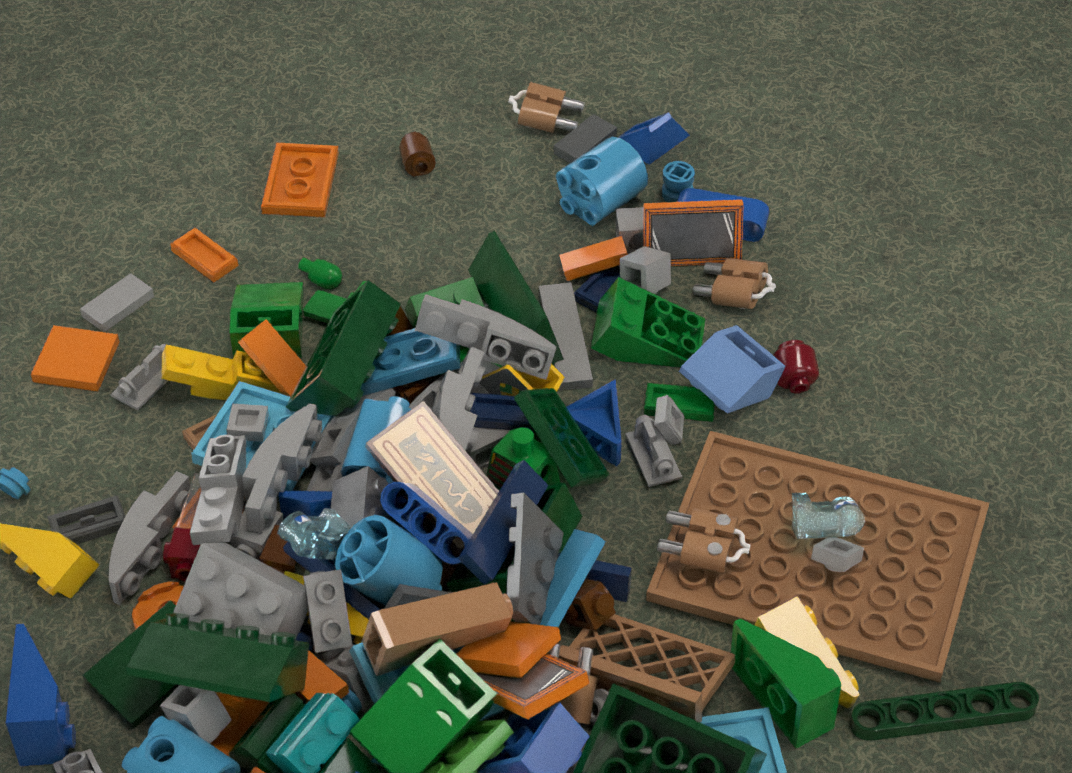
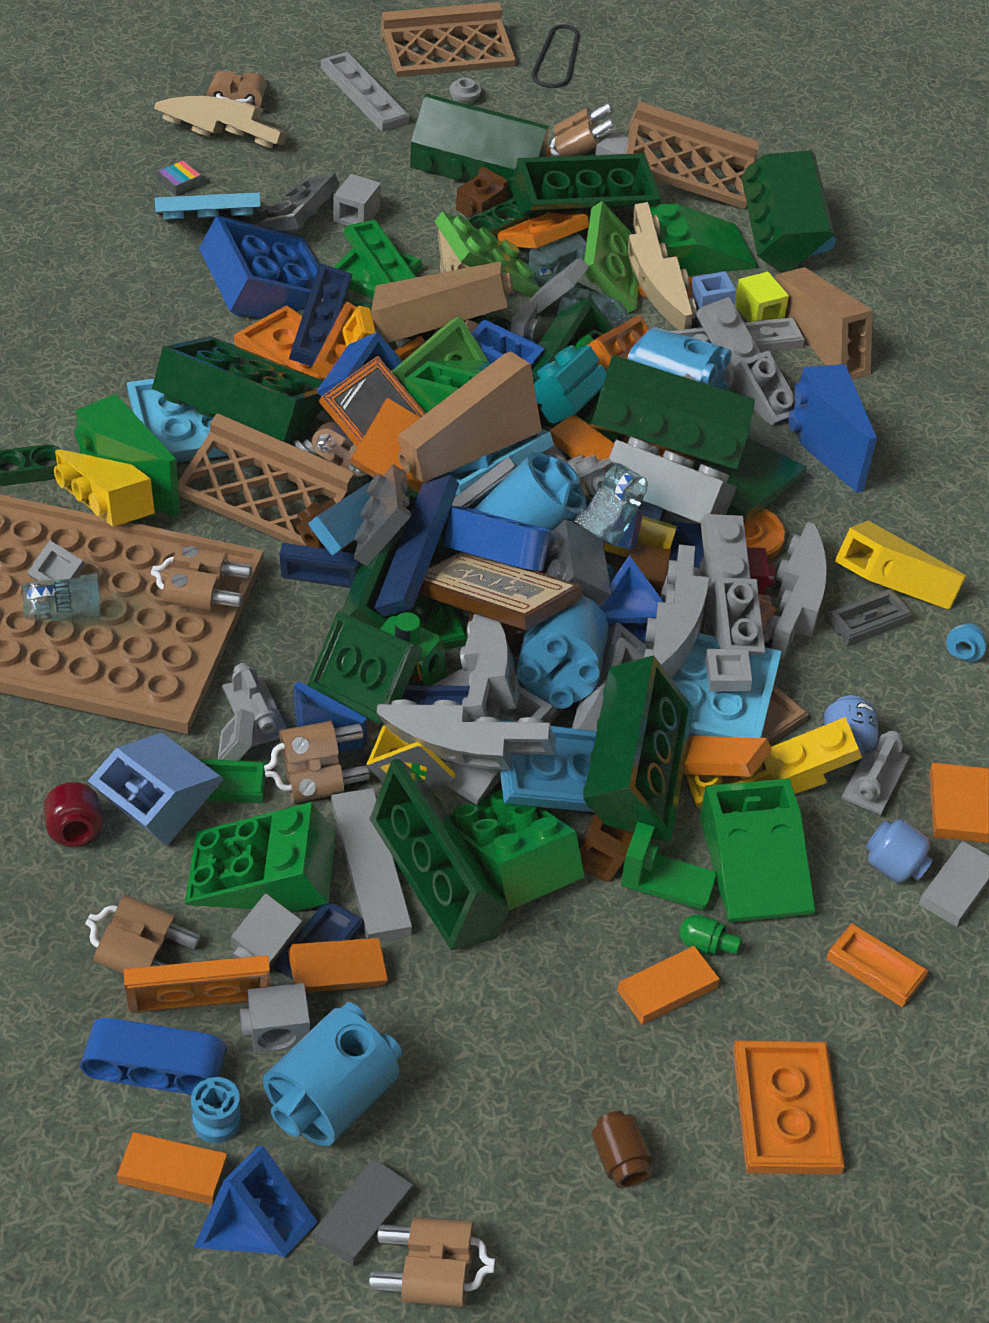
camera: 170 degrees right, 0 degrees up
(153, 404) = (861, 718): none -> medium blue head
(156, 314) = (899, 851): none -> medium blue head
(360, 248) = (668, 985): none -> orange tile
(624, 387) = (313, 761): none -> medium nougat piece
(709, 166) = (172, 1168): none -> orange tile

